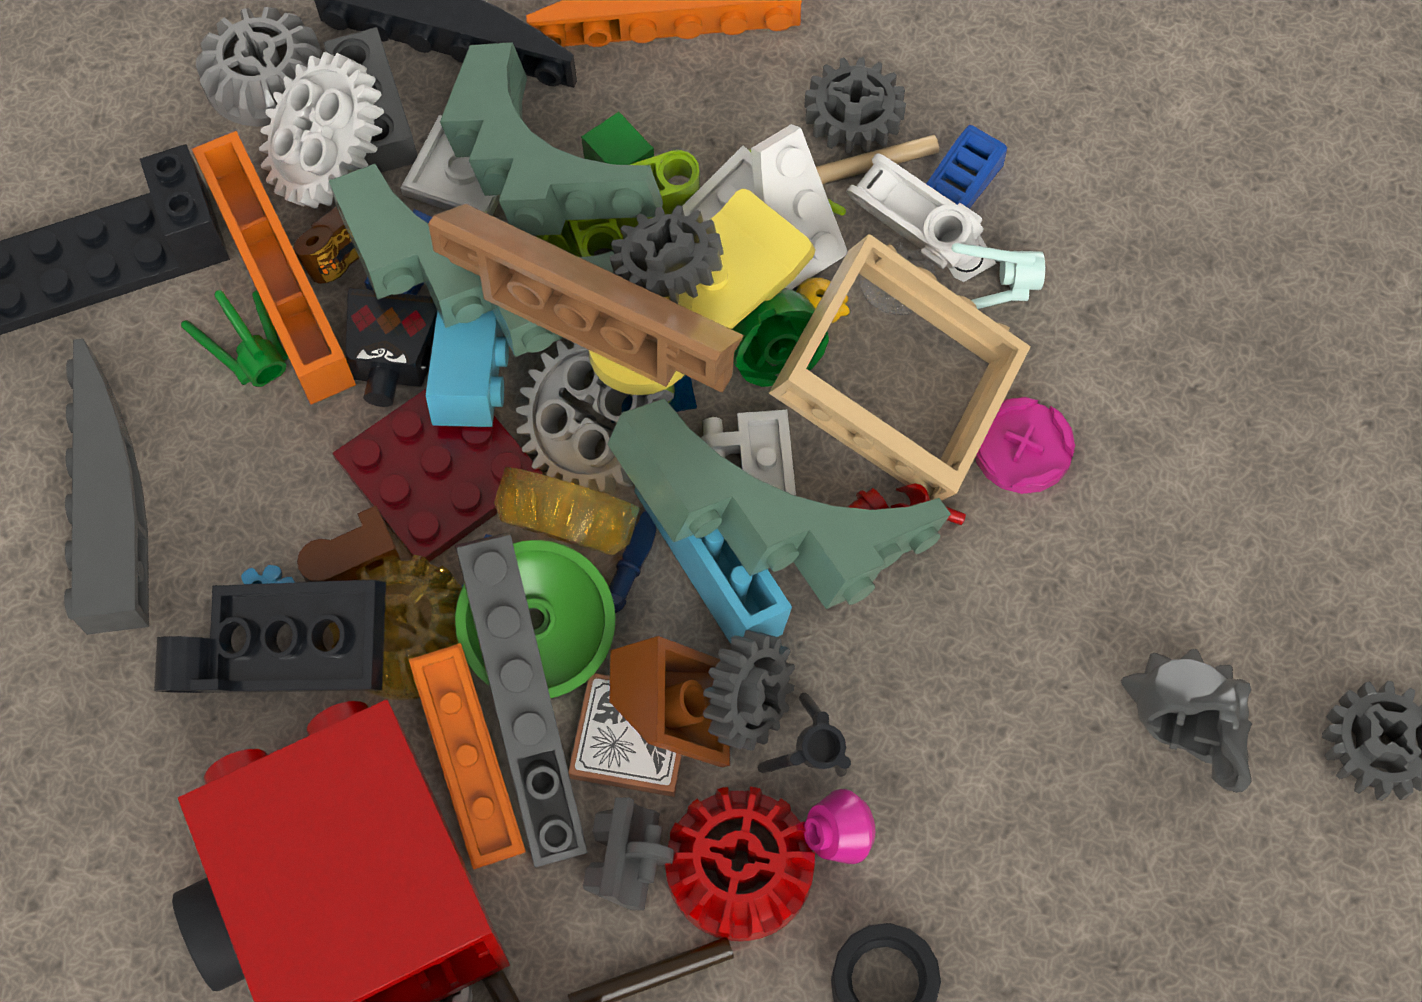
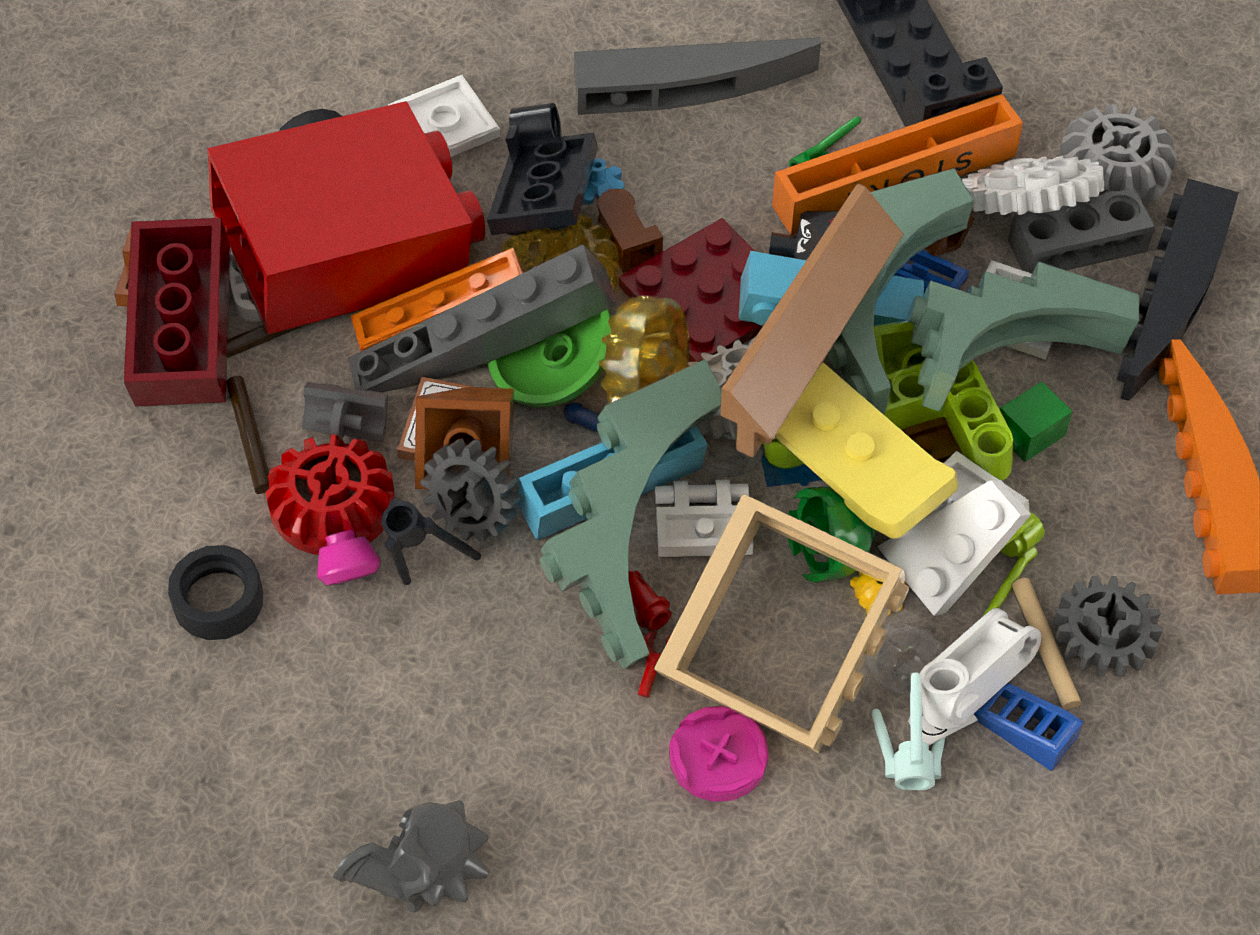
camera: 90 degrees right, 10 degrees down
(140, 784) = (454, 112): none -> white tile
(671, 252) = (868, 397): dark grey gear -> none

